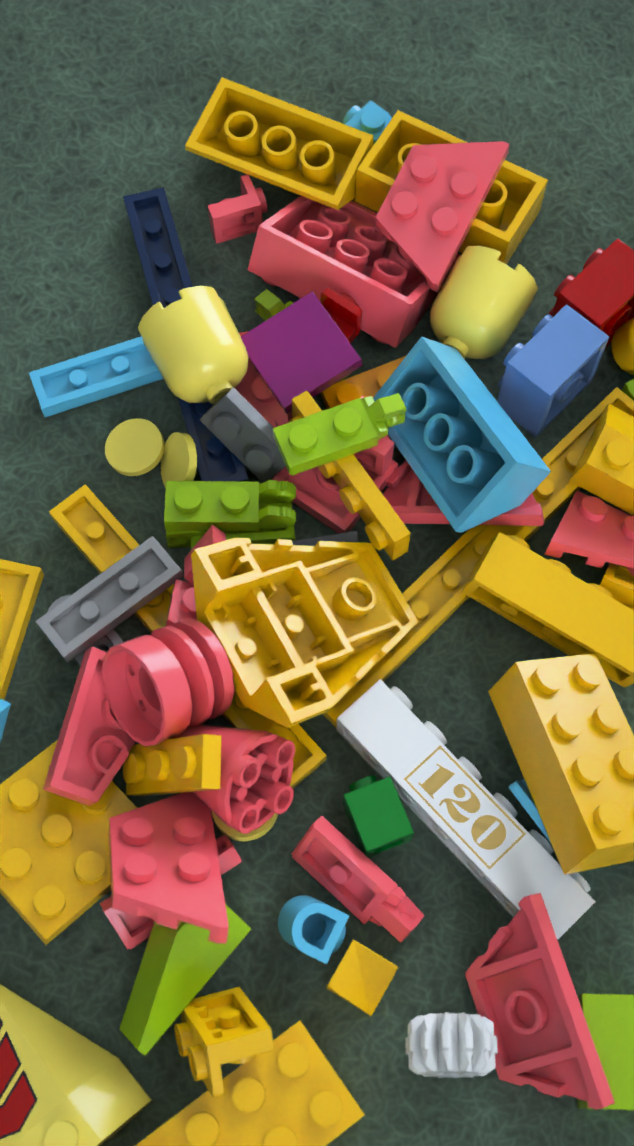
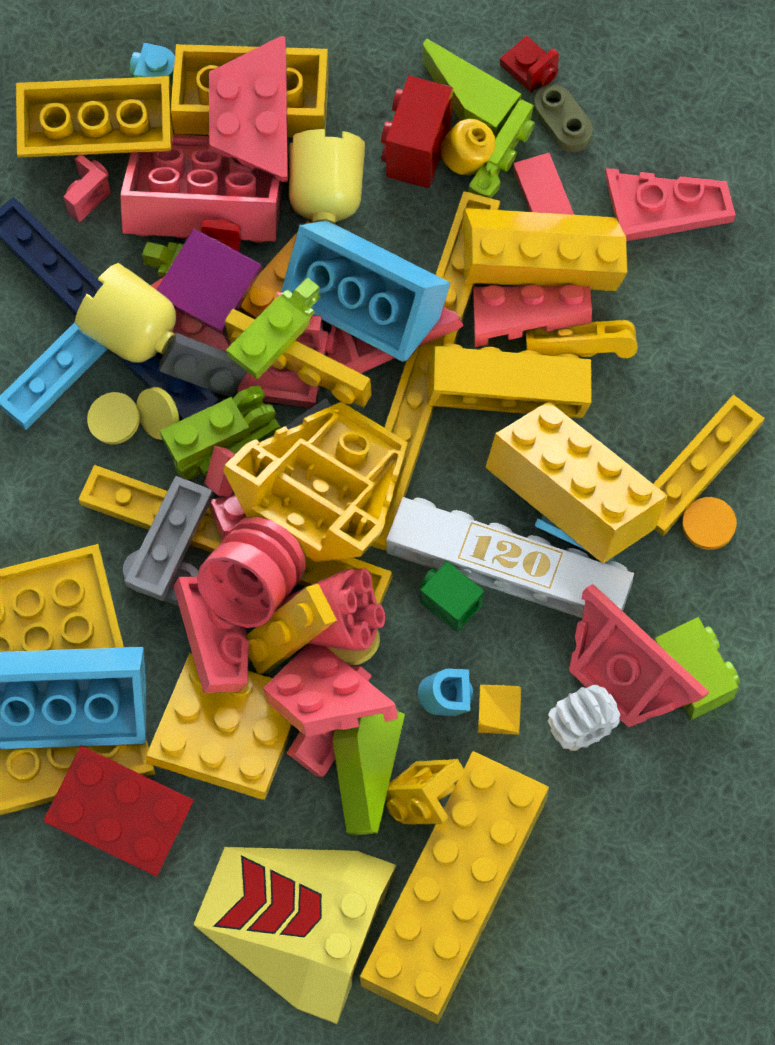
camera: 25 degrees left, 0 degrees up
(355, 880) = (458, 646): coral hinge -> none
(550, 369) = (407, 203): medium blue brick -> none

